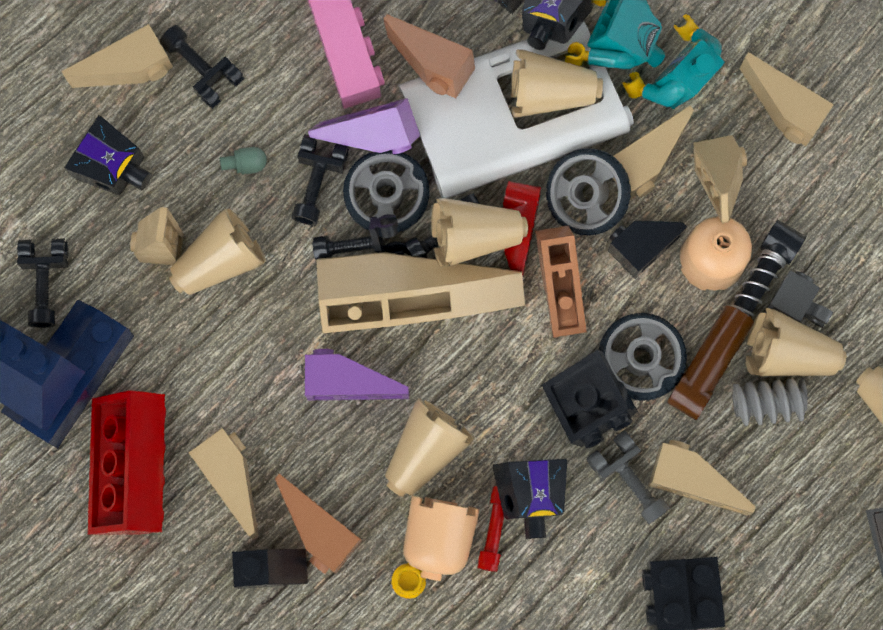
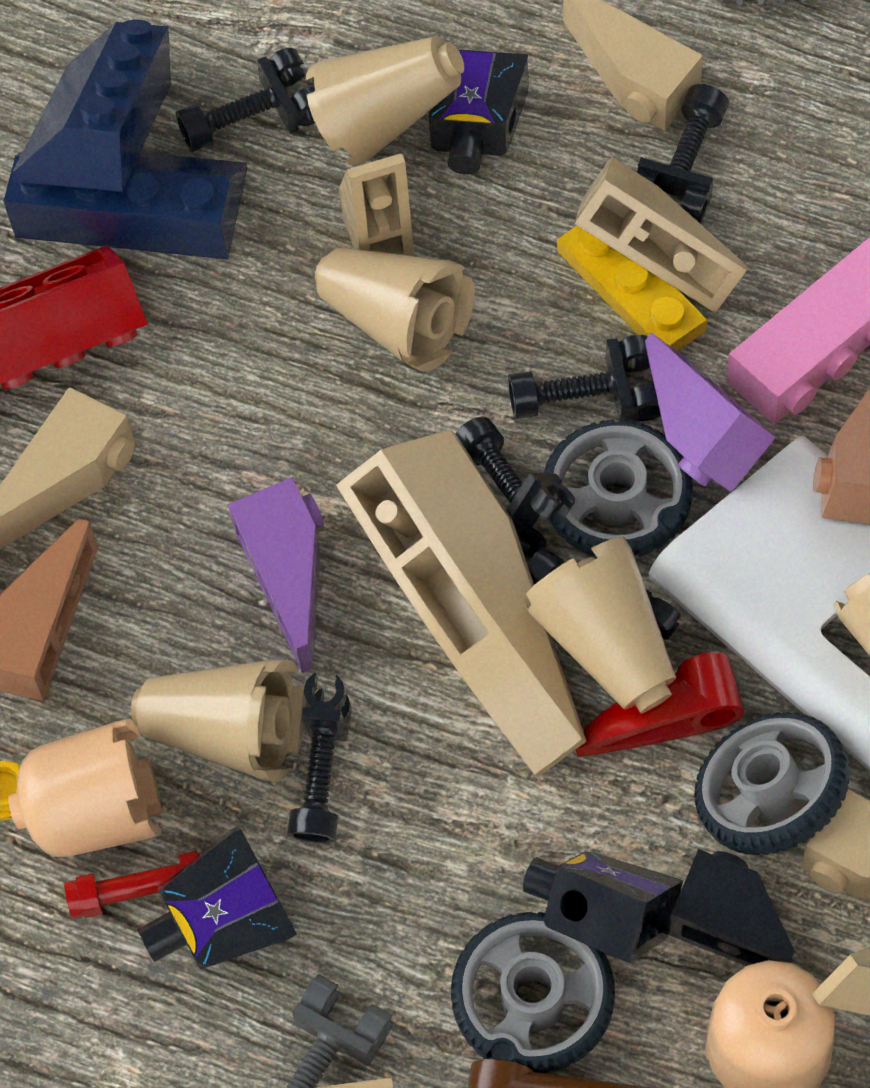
camera: 70 degrees right, 15 degrees down
(87, 203) = (379, 93): none -> tan cone
(245, 101) = (658, 235): none -> tan slope
(245, 160) = (566, 279): sand green cylinder -> none
(262, 128) = (632, 291): none -> yellow plate
(500, 425) = (324, 725): none -> black bar
(561, 280) = (607, 801): nougat slope -> none
(589, 400) = (412, 933): black plate -> none
(617, 300) = (605, 902): none -> black torso

